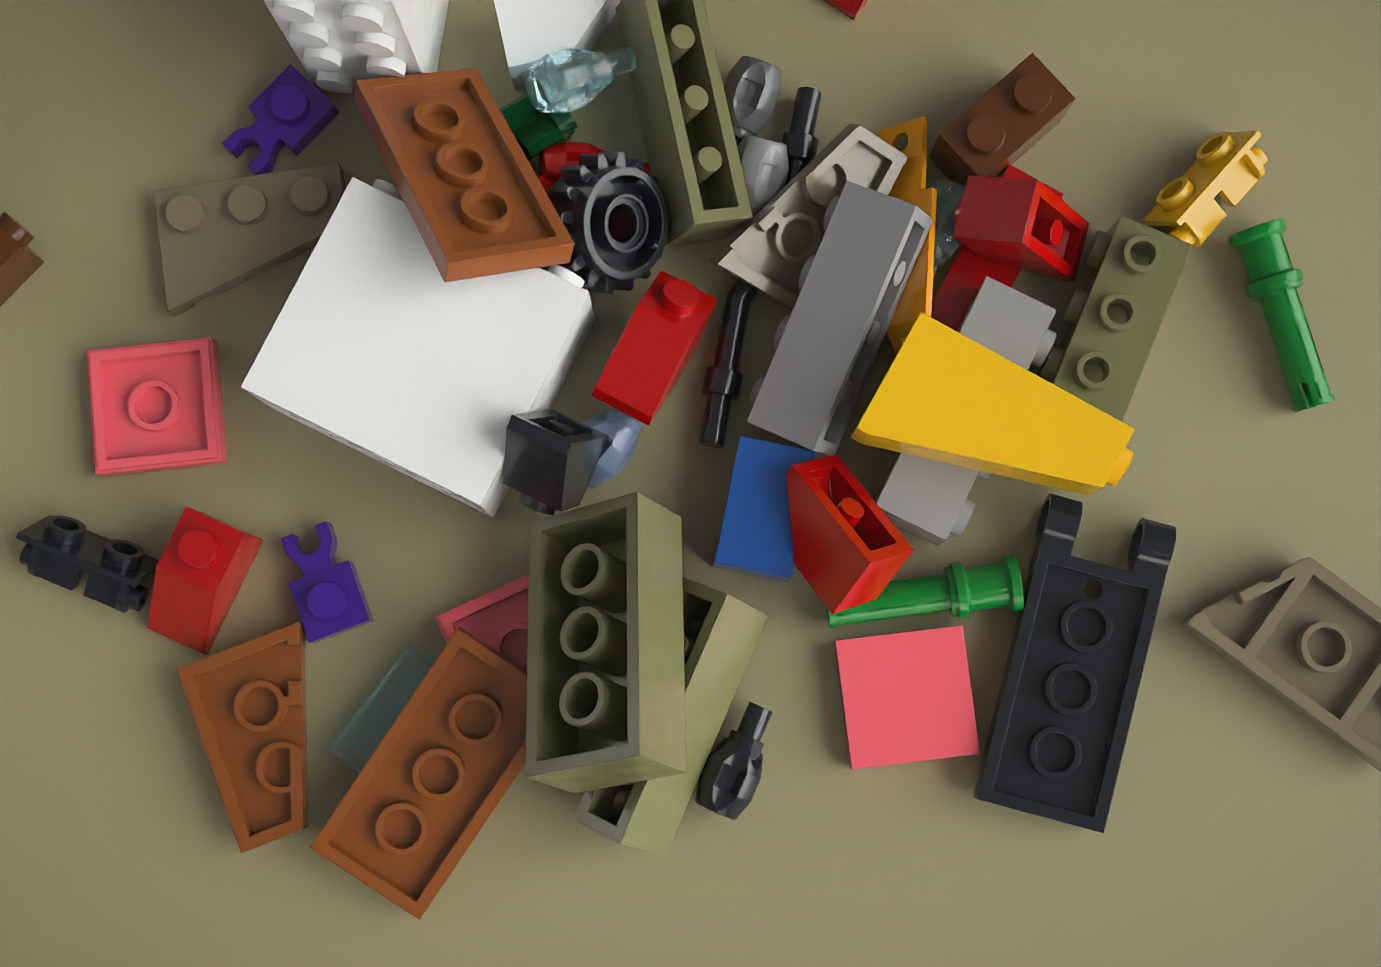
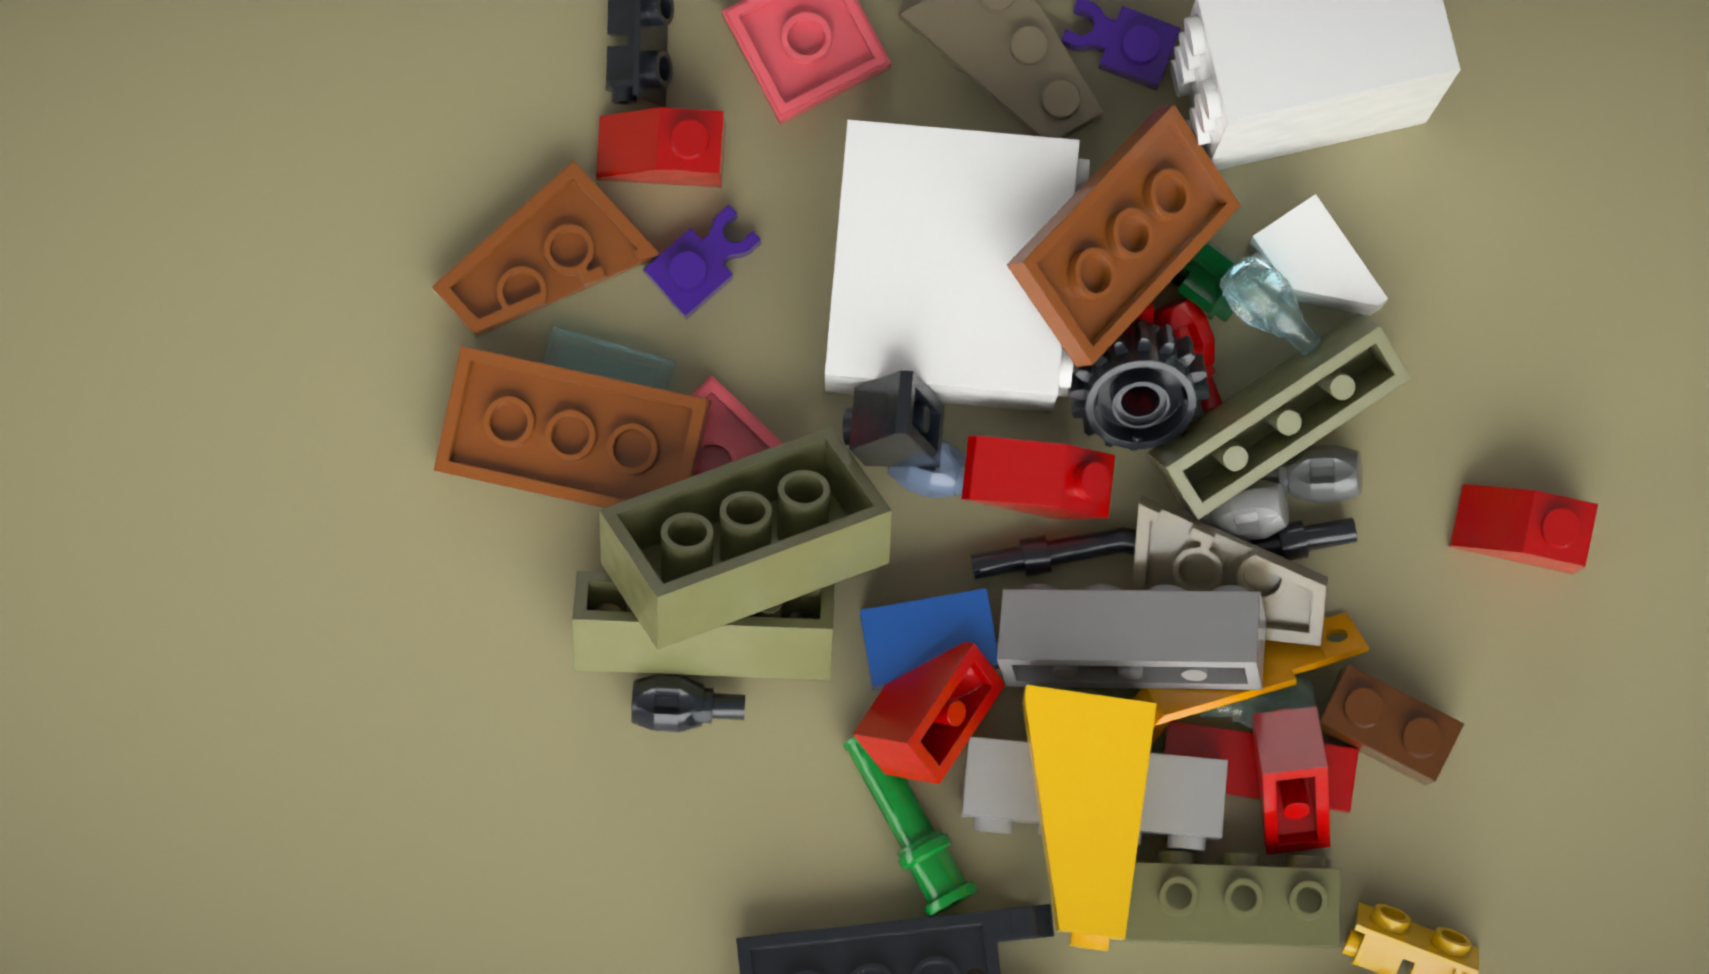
camera: 70 degrees right, 0 degrees up
(906, 697) = (806, 841): coral tile -> none

